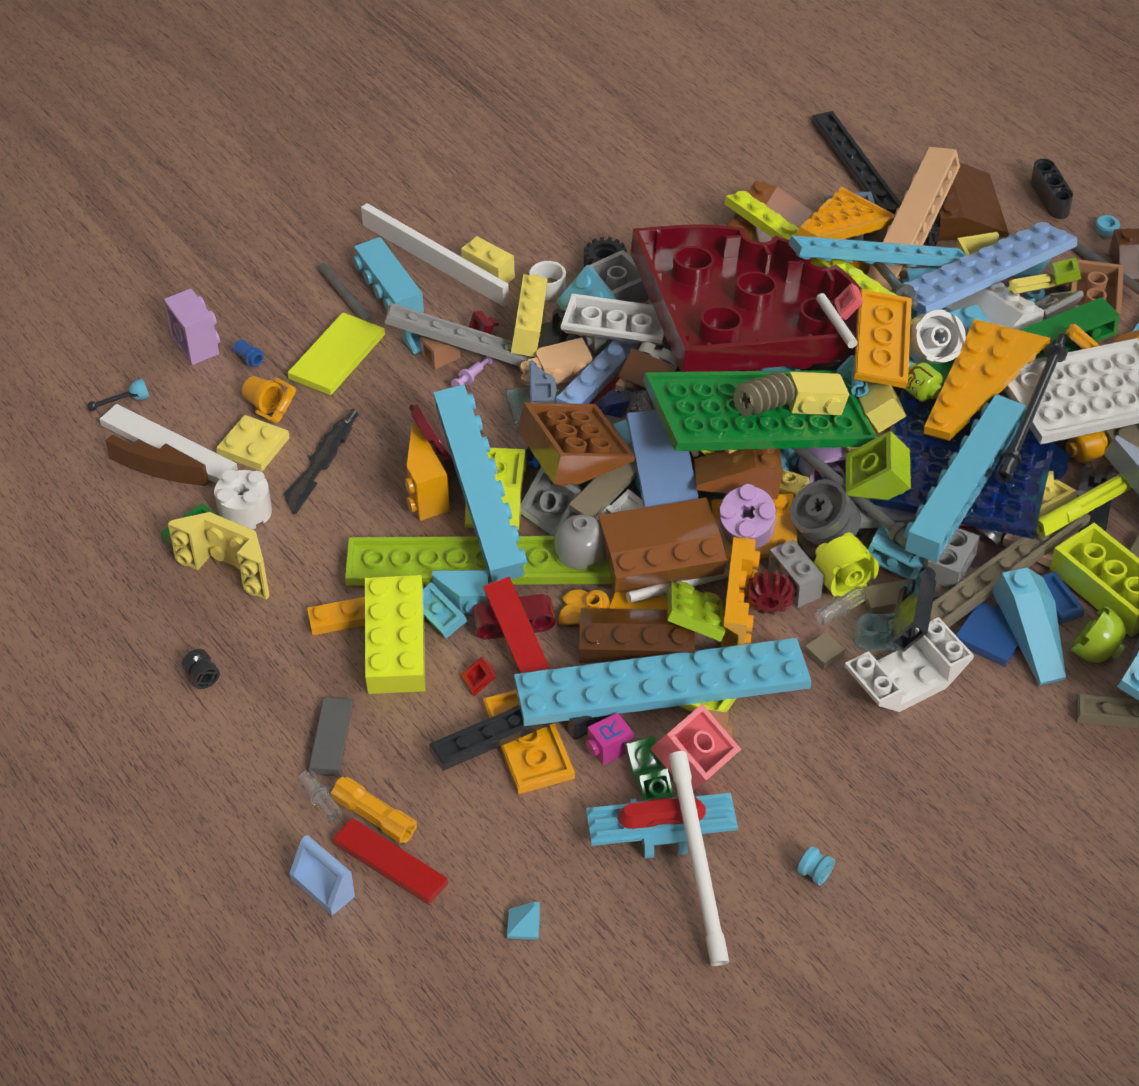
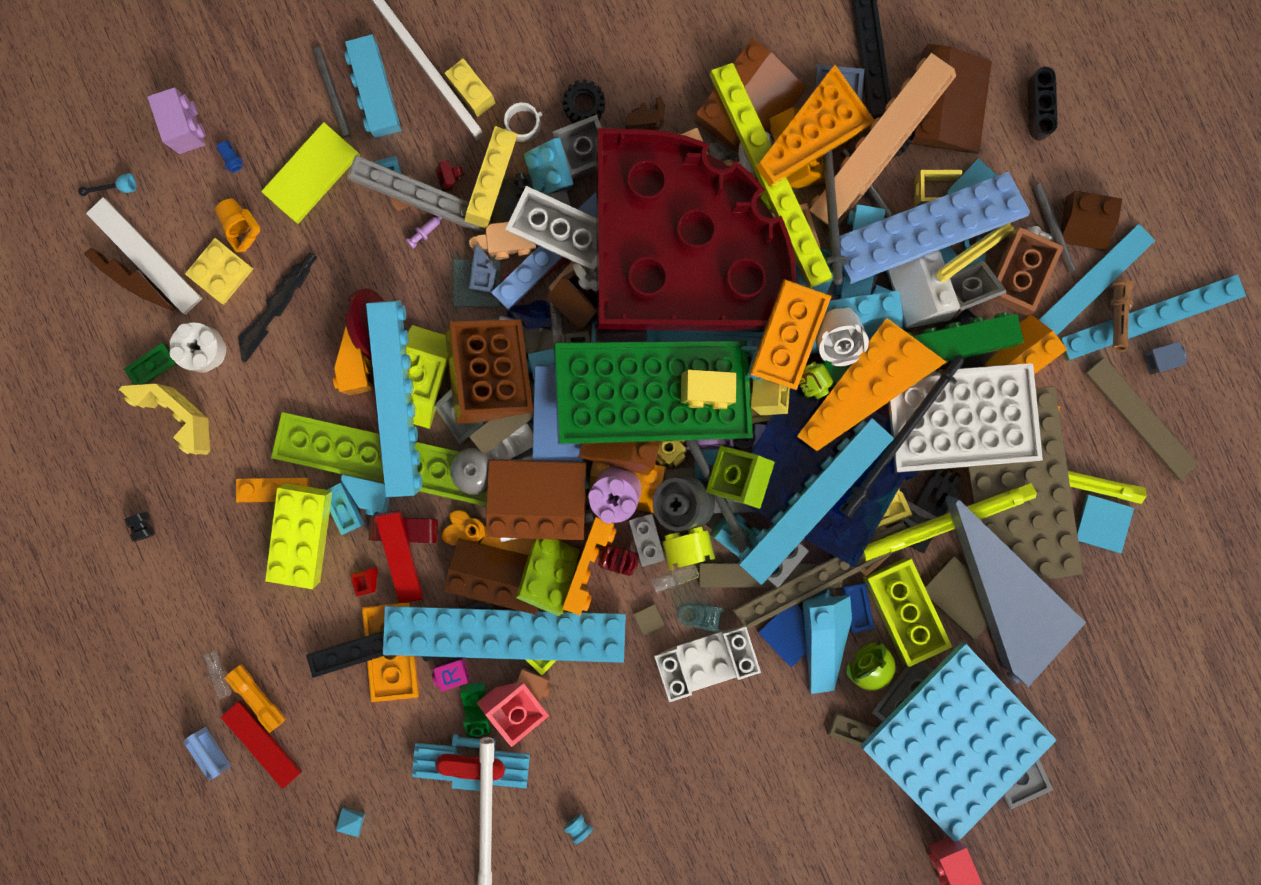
camera: 15 degrees right, 40 degrees up
(331, 736) = (236, 615): dark grey tile -> none
(763, 394) = (656, 390): dark tan piece -> none
(836, 320) = (753, 305): white bar -> none
(848, 301) = (770, 287): coral tile -> none
(873, 251) = (830, 196): medium azure plate -> none
(913, 610) = (728, 615): black hinge -> none
(1066, 271) = (1005, 244): lime tile -> none
(1080, 337) = (984, 359): light orange axle -> none
(1105, 225) = (1077, 164): medium azure tile -> none

